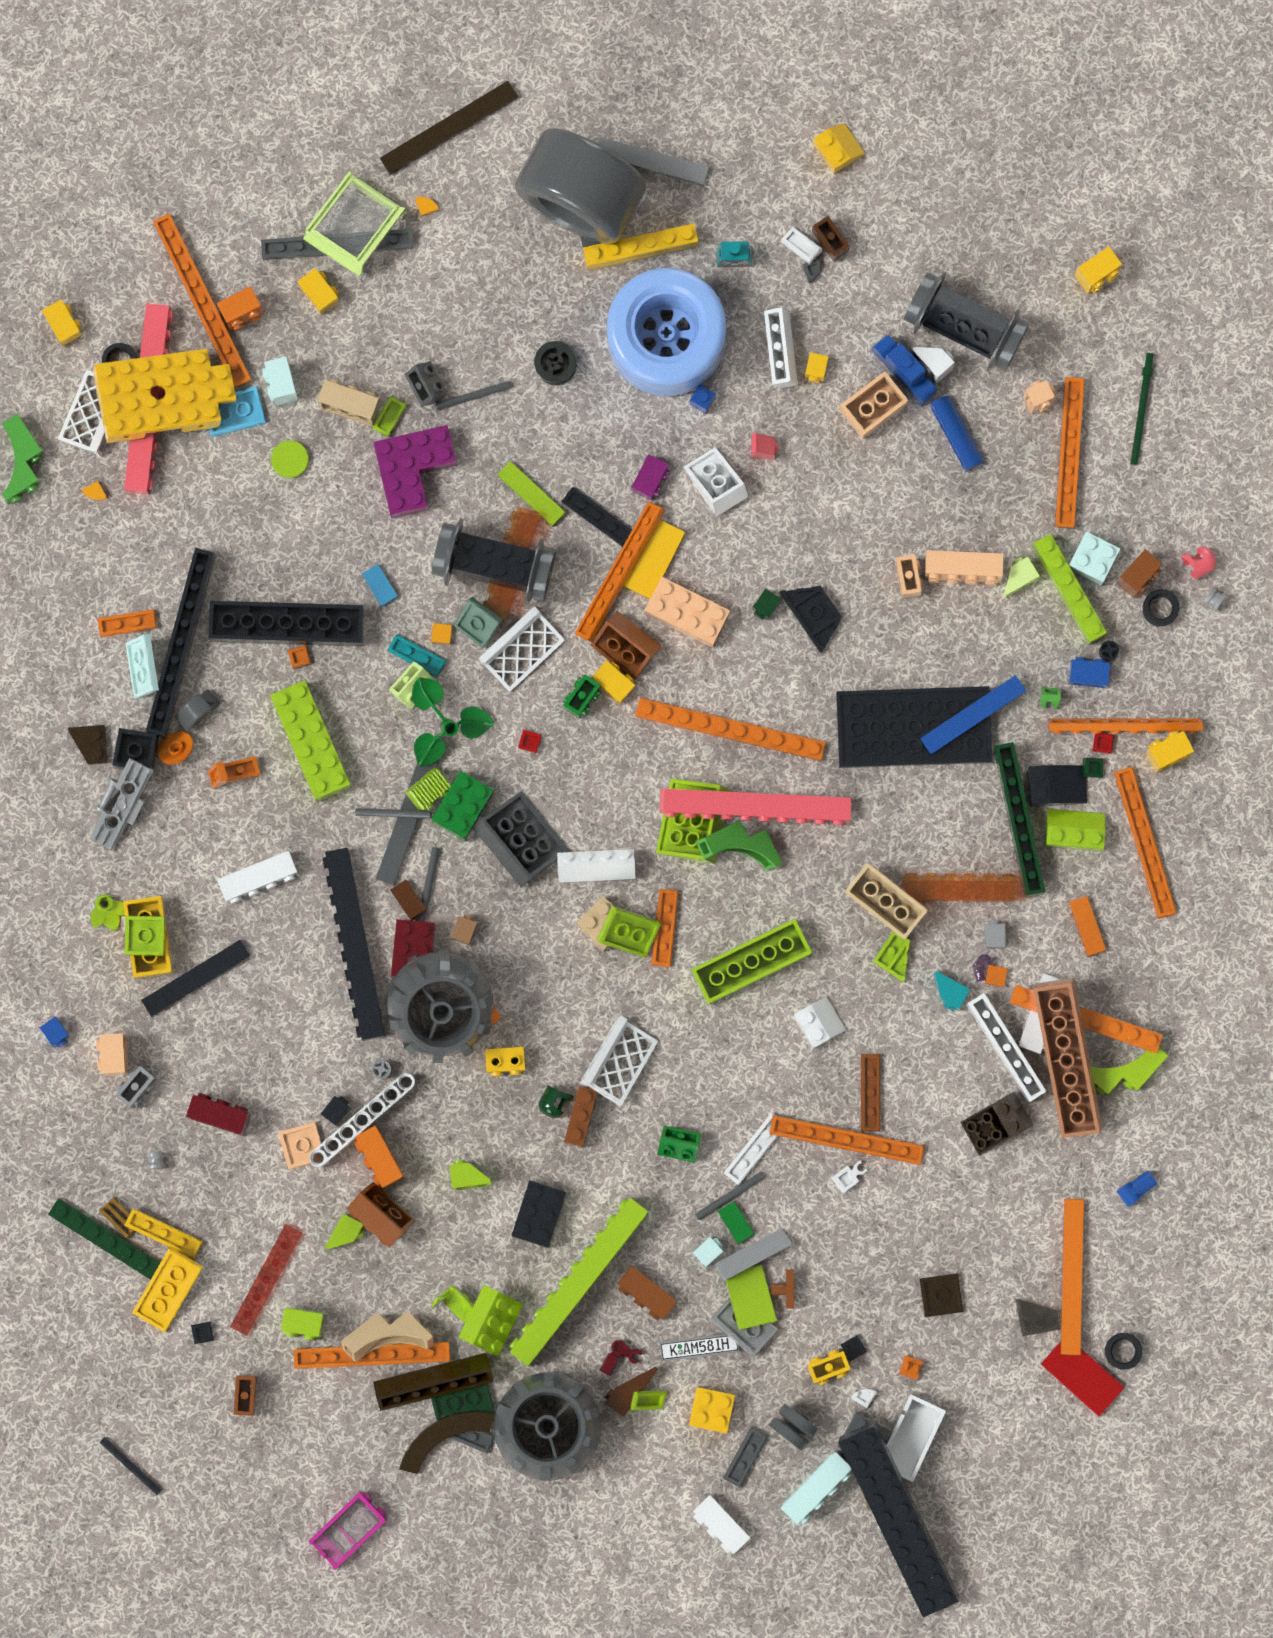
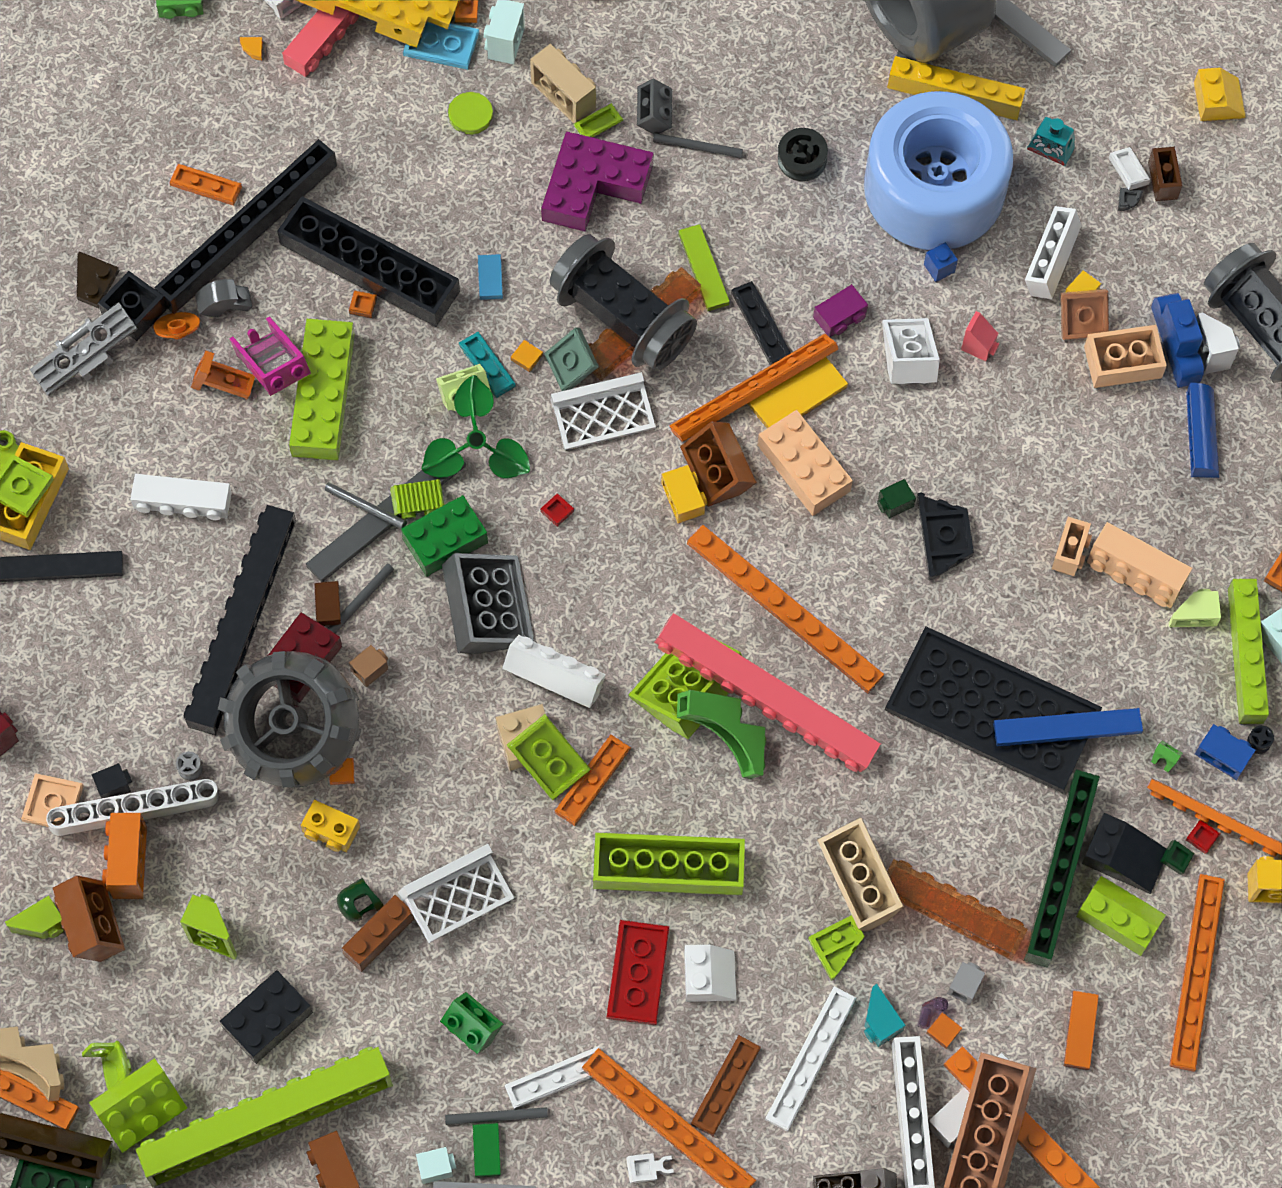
camera: 25 degrees right, 15 degrees down
(142, 666) = (192, 227): light aqua tile -> none
(263, 739) = (272, 358): none -> dark pink door
(579, 700) = (640, 489): green brick -> none
(769, 1047) = (637, 972): none -> red tile
(828, 386) = (1084, 313): none -> nougat tile
(917, 1044) = (810, 1059): none -> white tile

